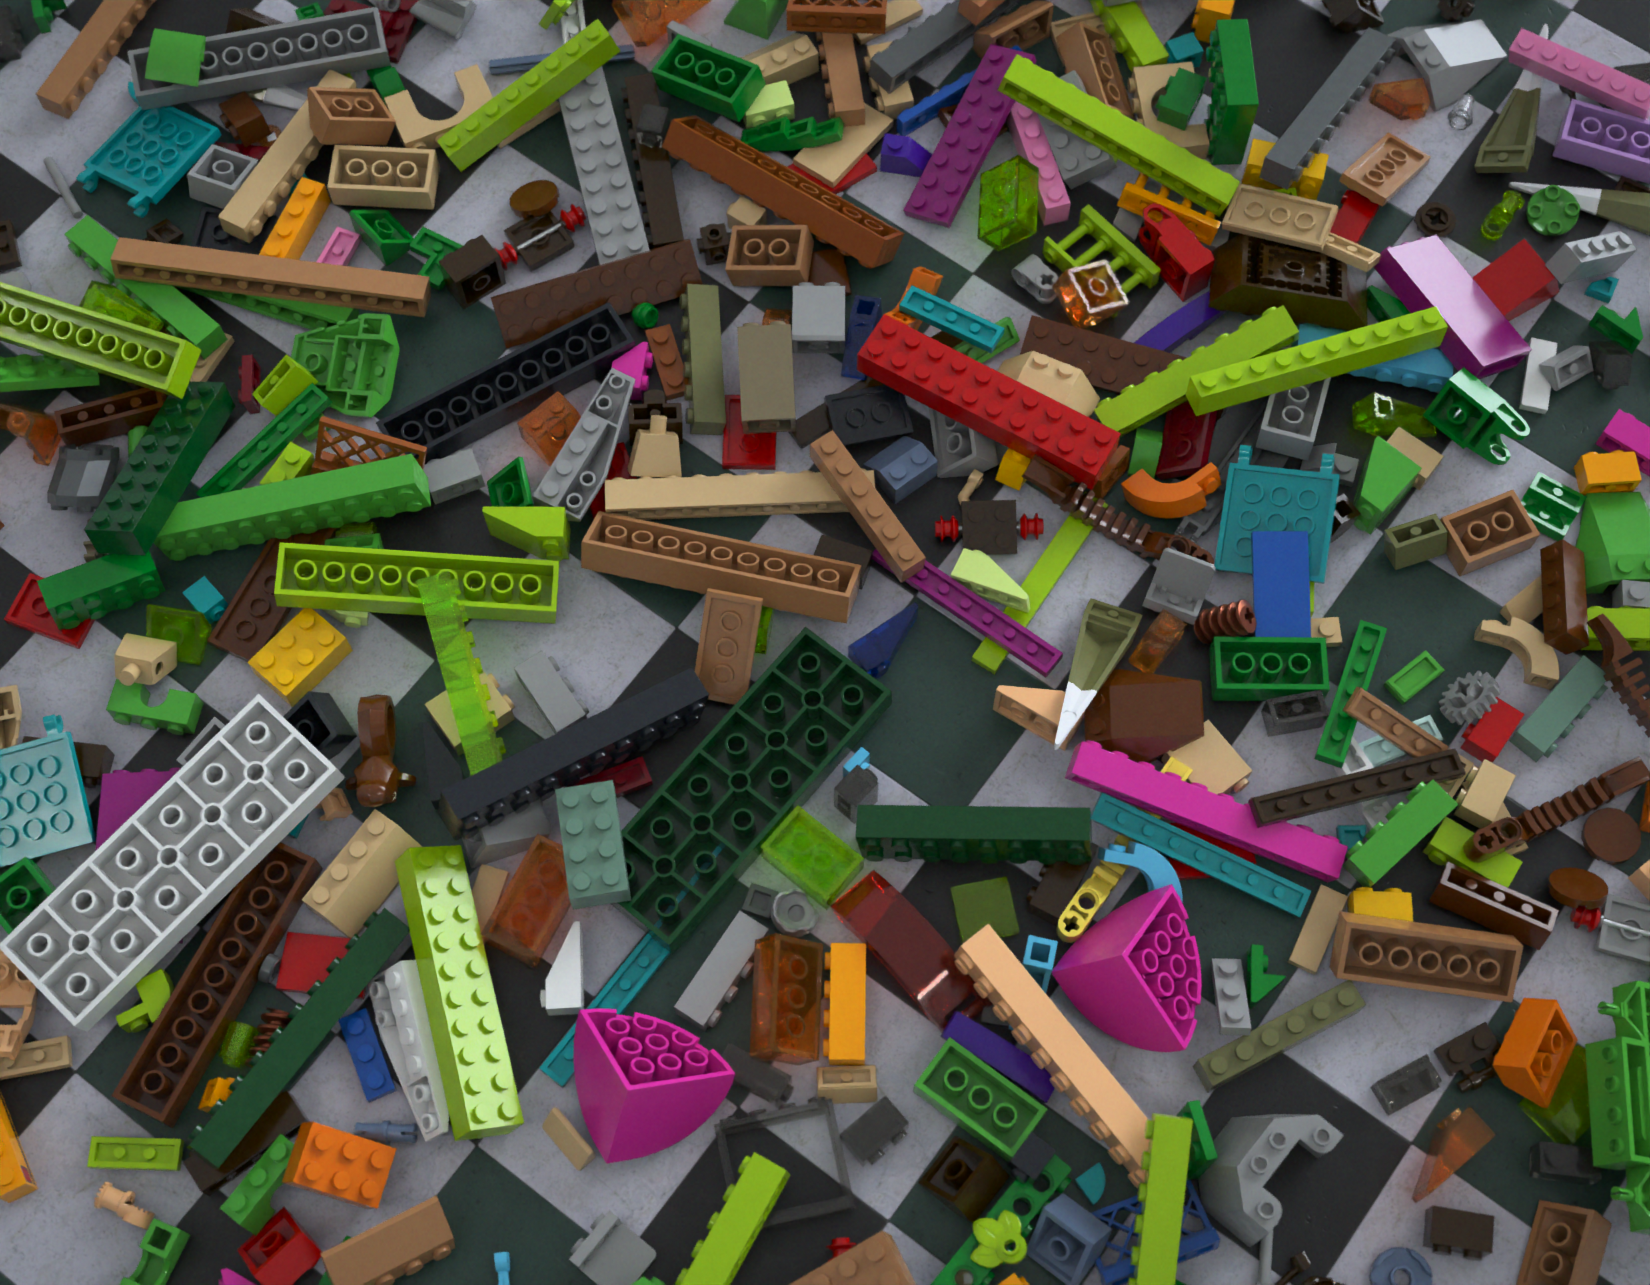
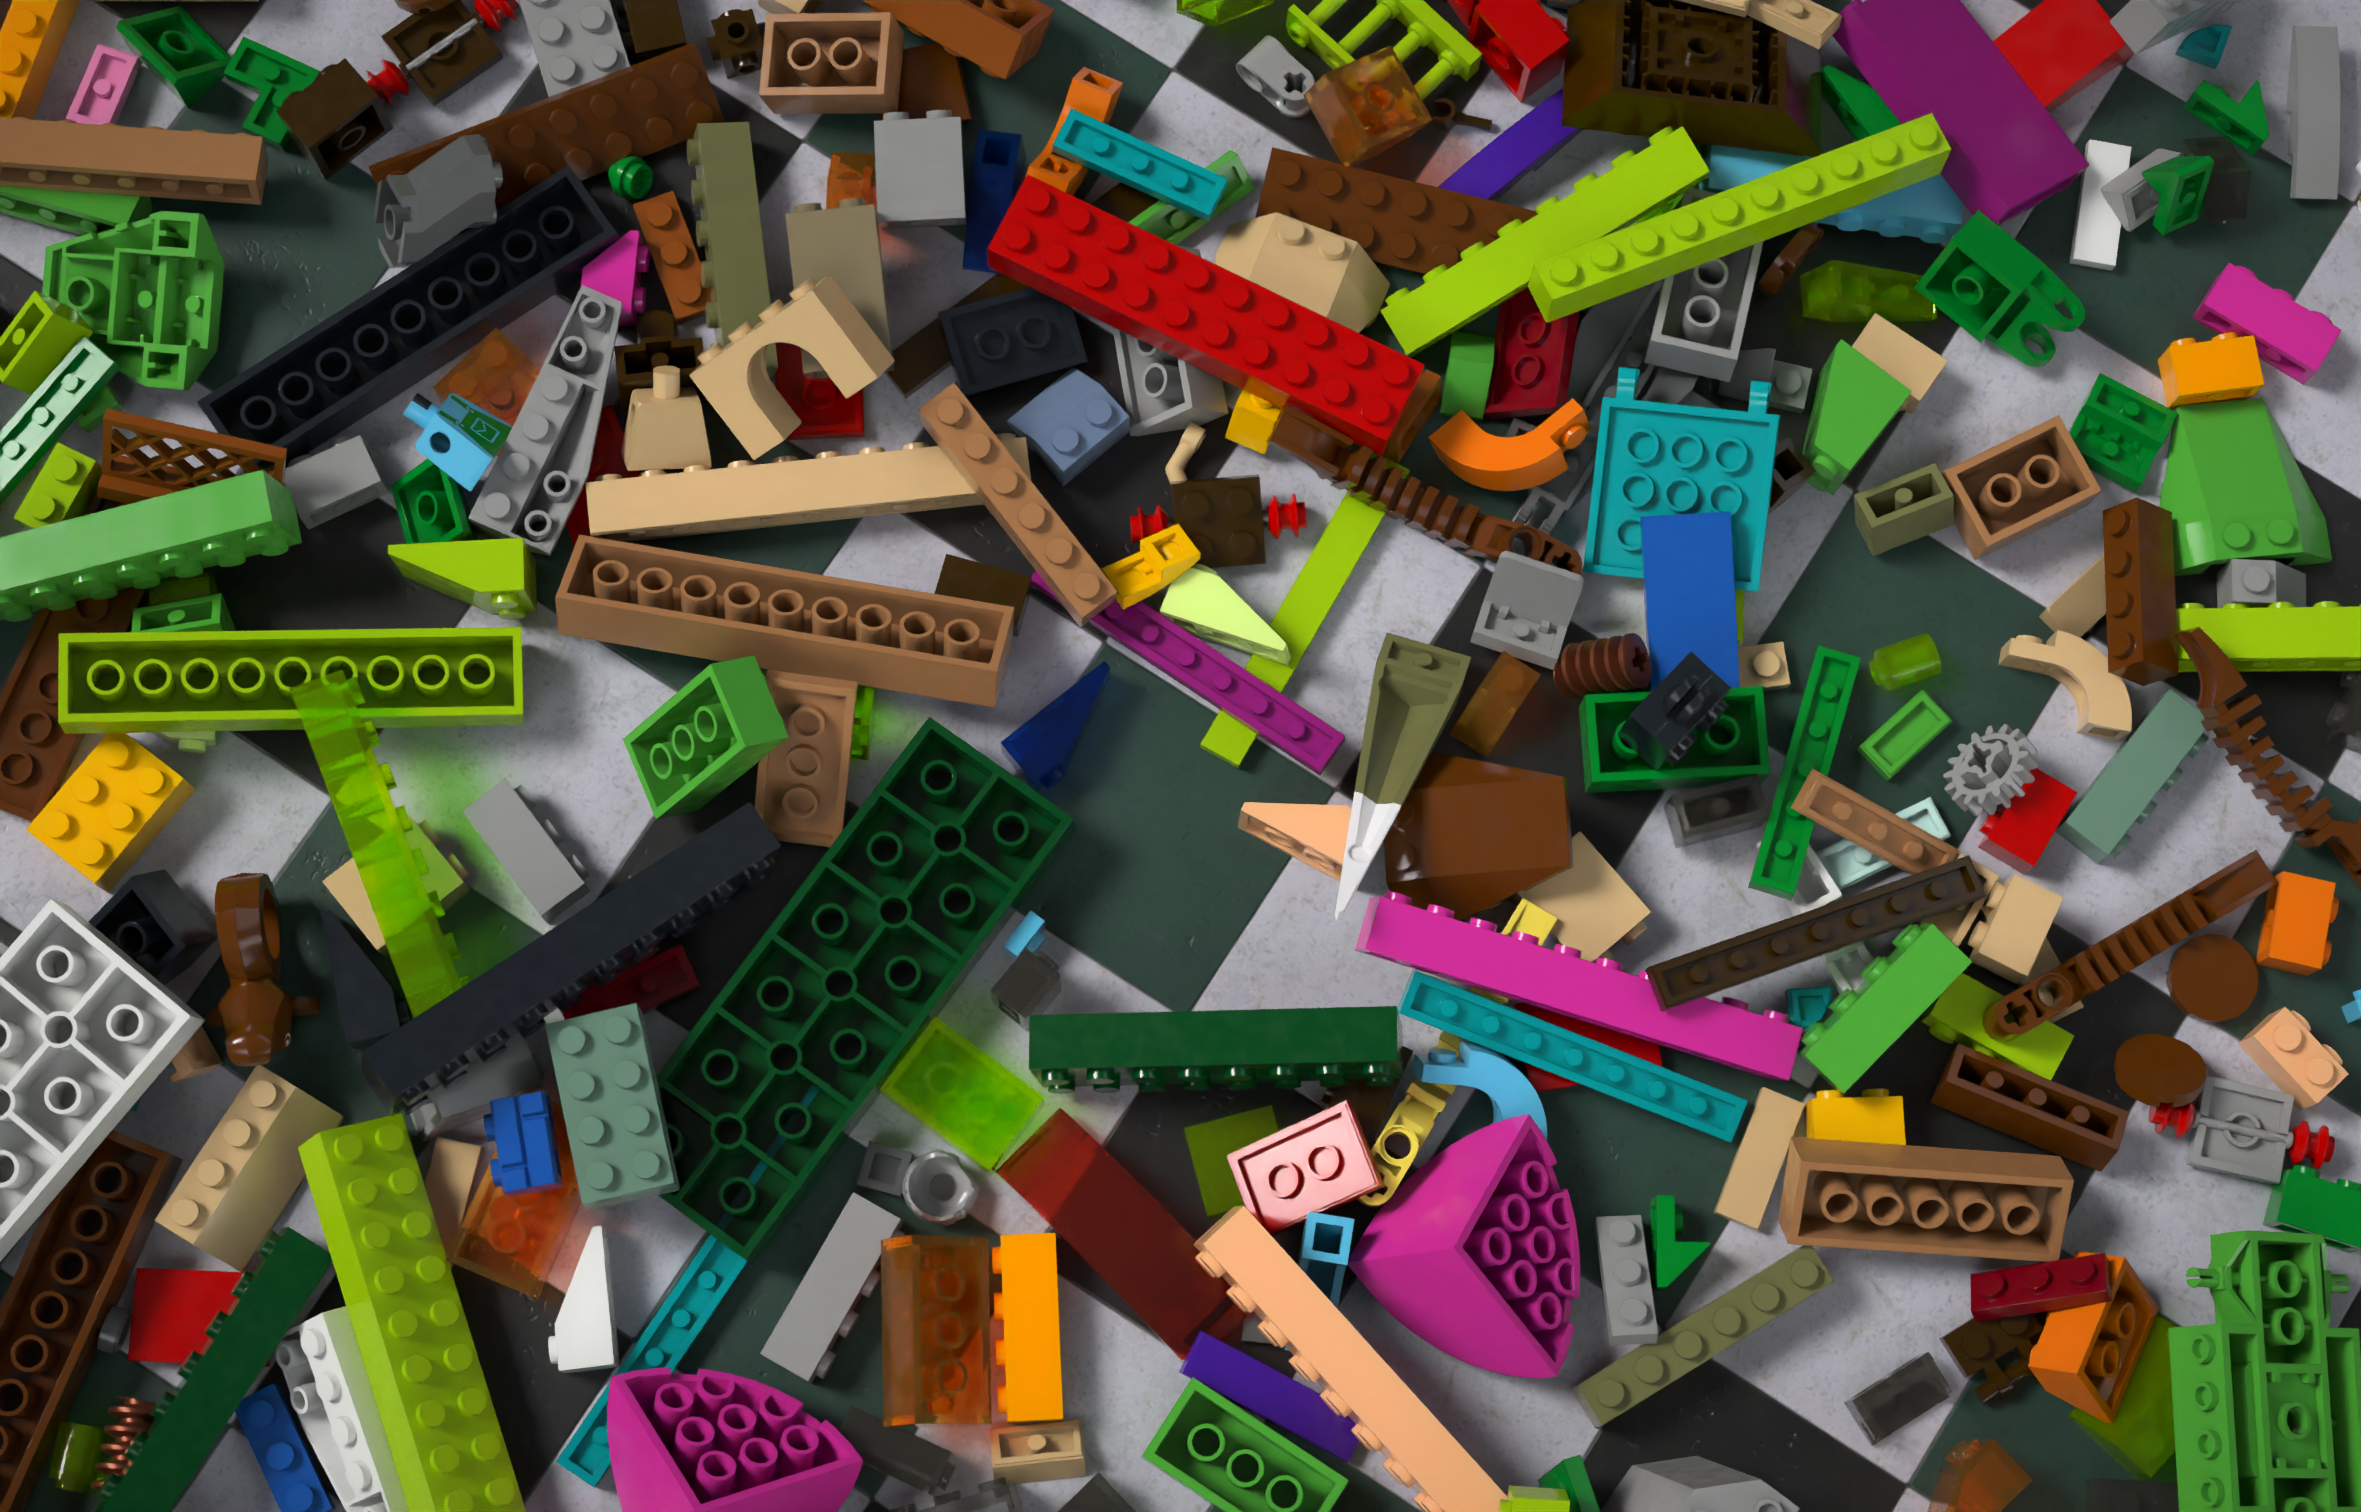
camera: 10 degrees left, 10 degrees up
(529, 314) = (437, 200): none -> dark grey brick
(530, 448) = (458, 436): none -> medium azure torso
(536, 864) = (524, 1144): none -> blue brick
(667, 628) = (705, 737): none -> bright green brick
(701, 424) = (816, 320): none -> tan arch
(950, 547) = (1158, 563): none -> yellow slope
(1029, 909) = (1306, 1169): none -> tile
(1140, 307) = (1457, 118): none -> dark brown hand
(1270, 645) = (1668, 717): none -> black brick
(1345, 393) = (1790, 258): none -> reddish brown tile
(1415, 633) = (1905, 662): none -> clear neon green brick
(1500, 1017) = (2041, 1287): none -> dark red plate
(1589, 366) = (2181, 190): none -> green slope

